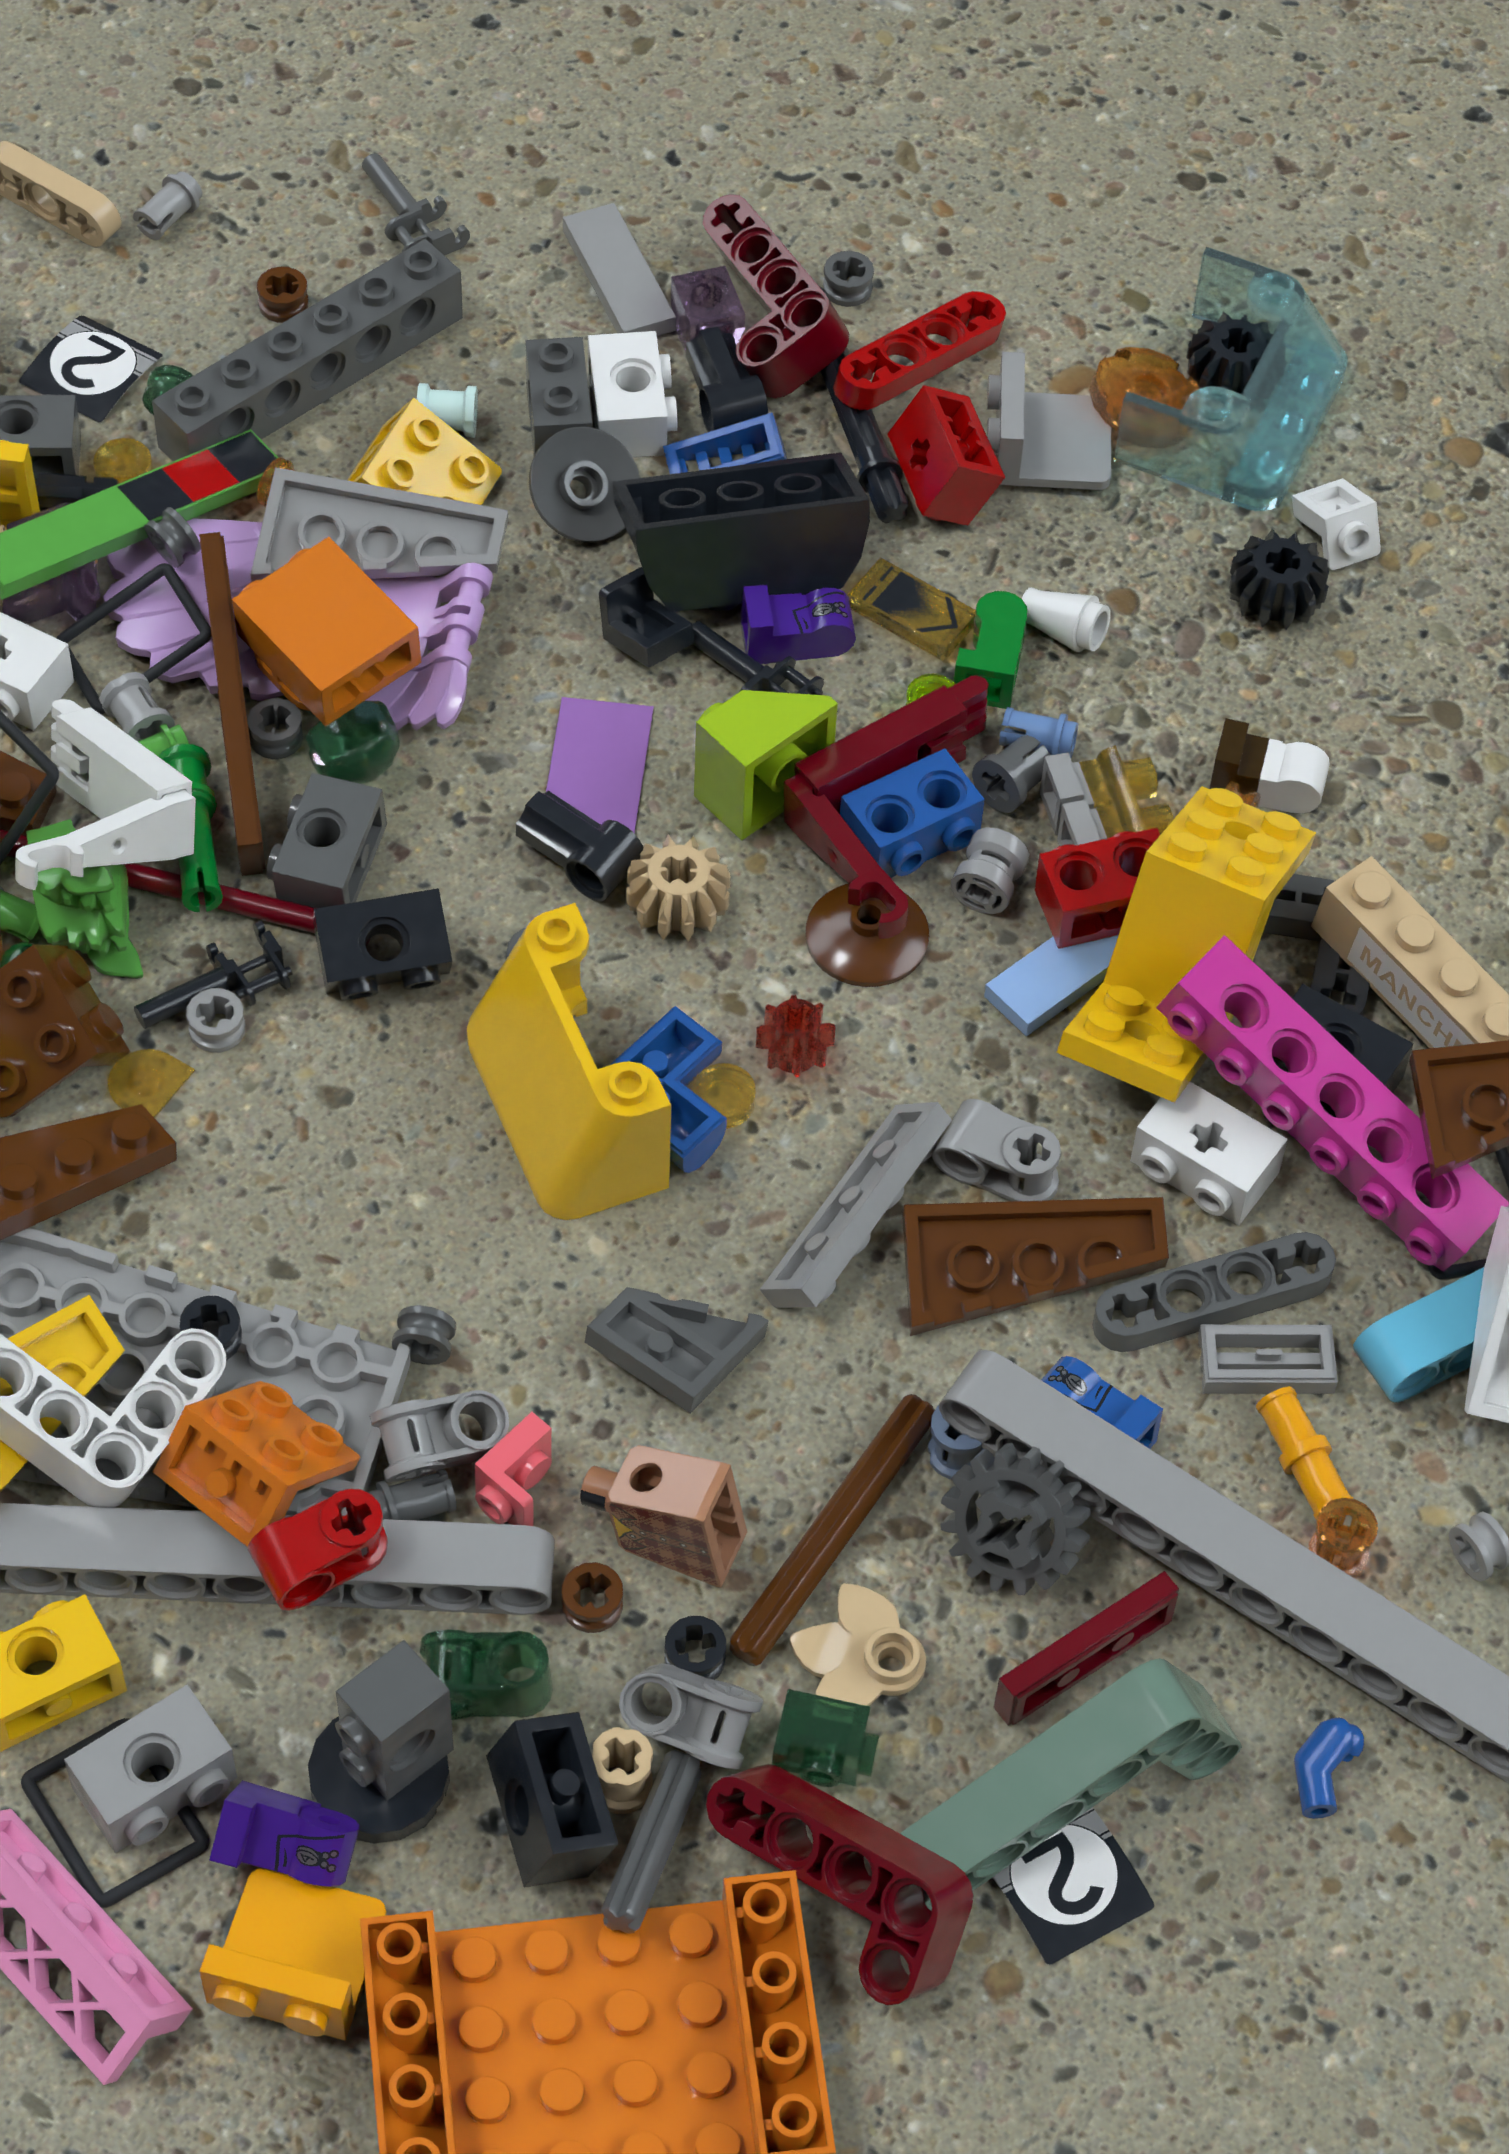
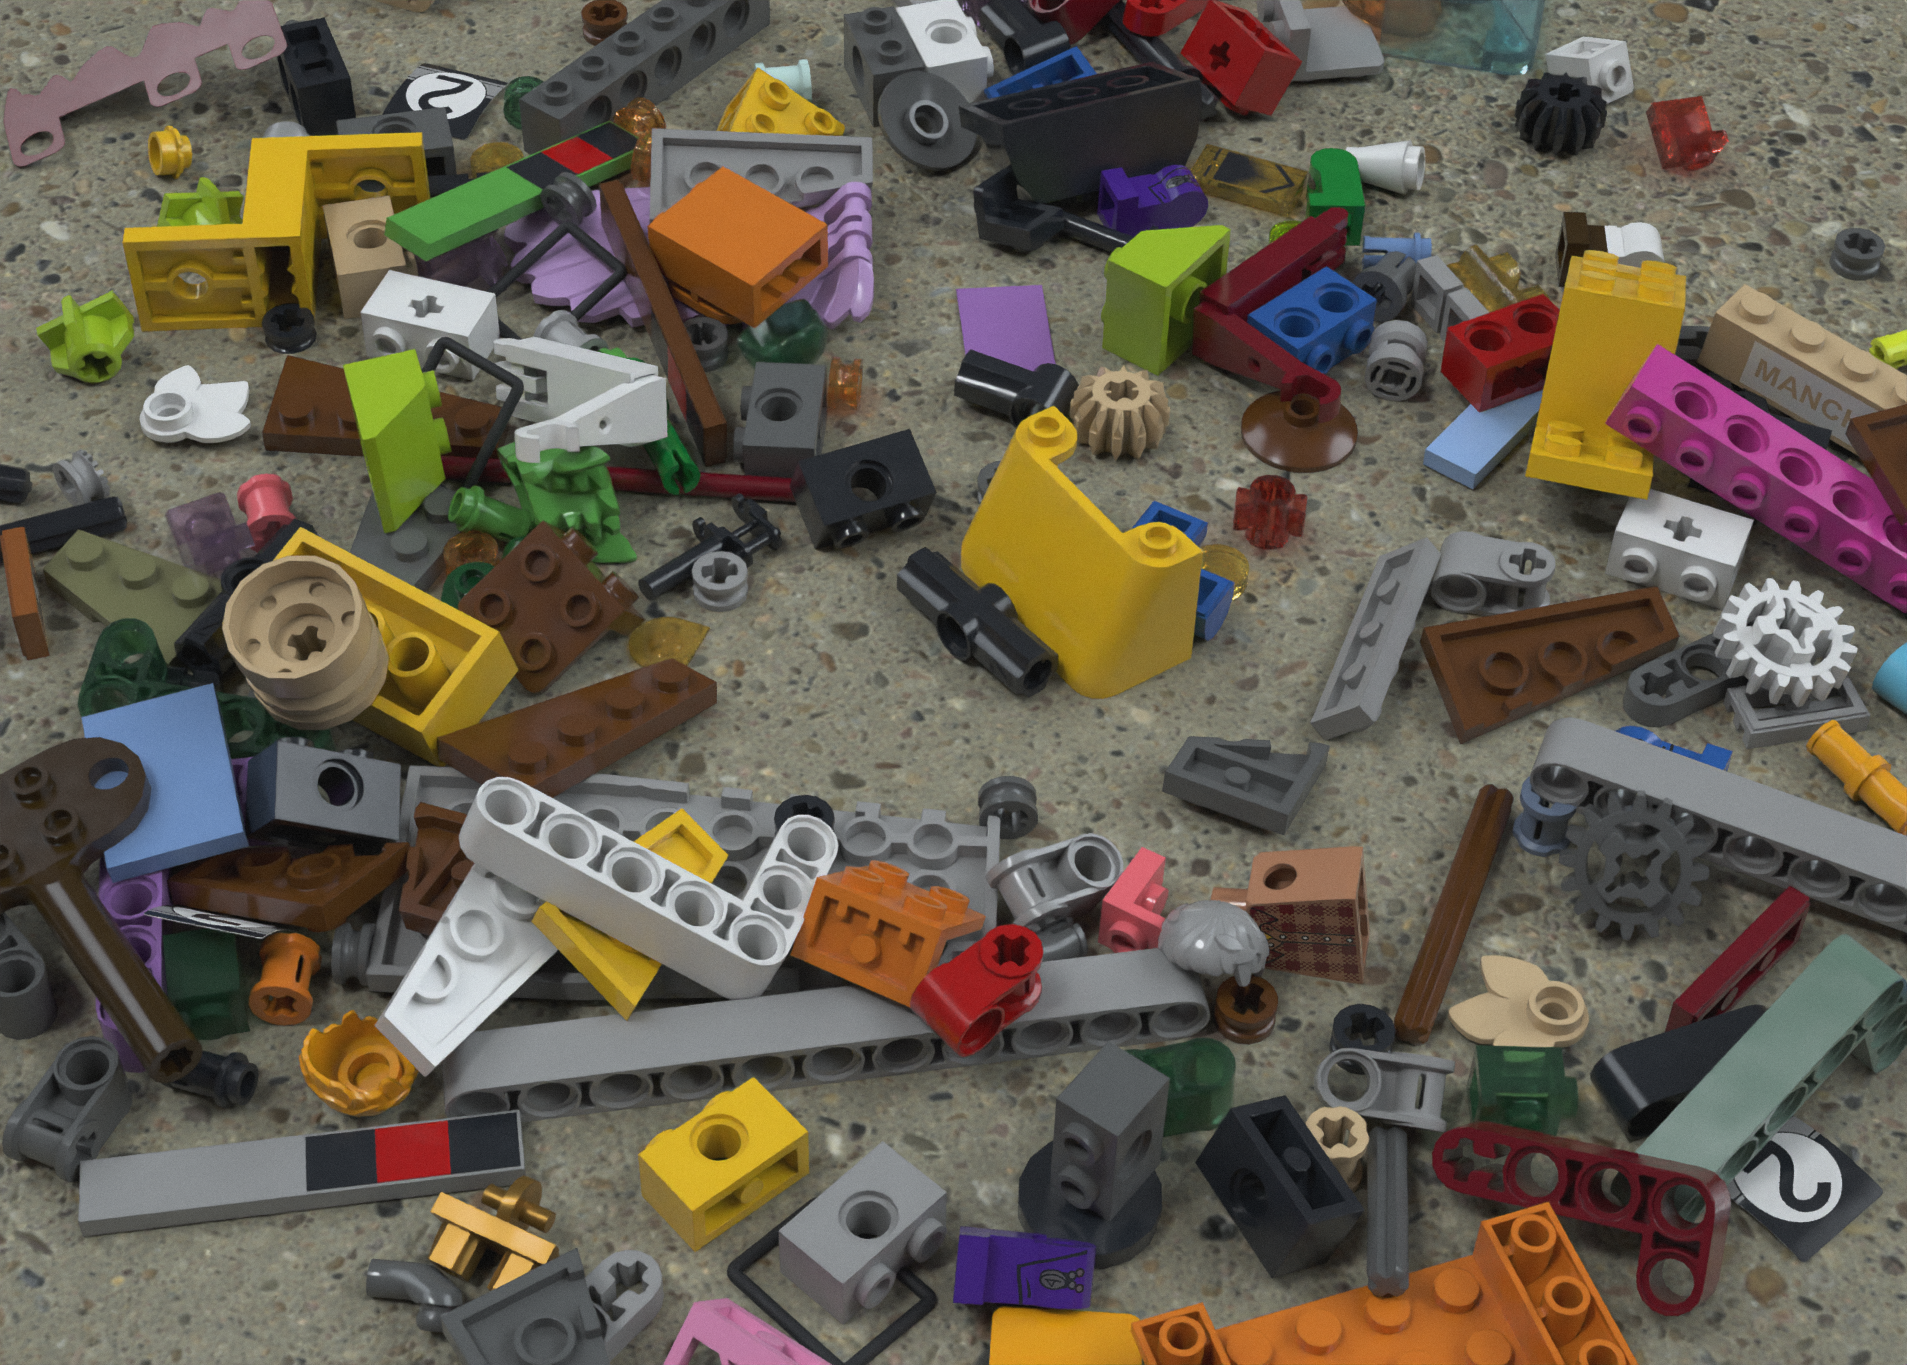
camera: 10 degrees left, 10 degrees down
(283, 435) = (639, 117): none -> clear orange bush
(405, 804) = (845, 383): none -> clear orange bush
(456, 1115) = (977, 622): none -> black piece
(567, 1531) = (1214, 940): none -> light grey hair
(960, 1746) = (1655, 1074): none -> black beam
(1240, 1301) = (1785, 642): none -> white gear
(1407, 627) = (1684, 133): none -> clear red bracket

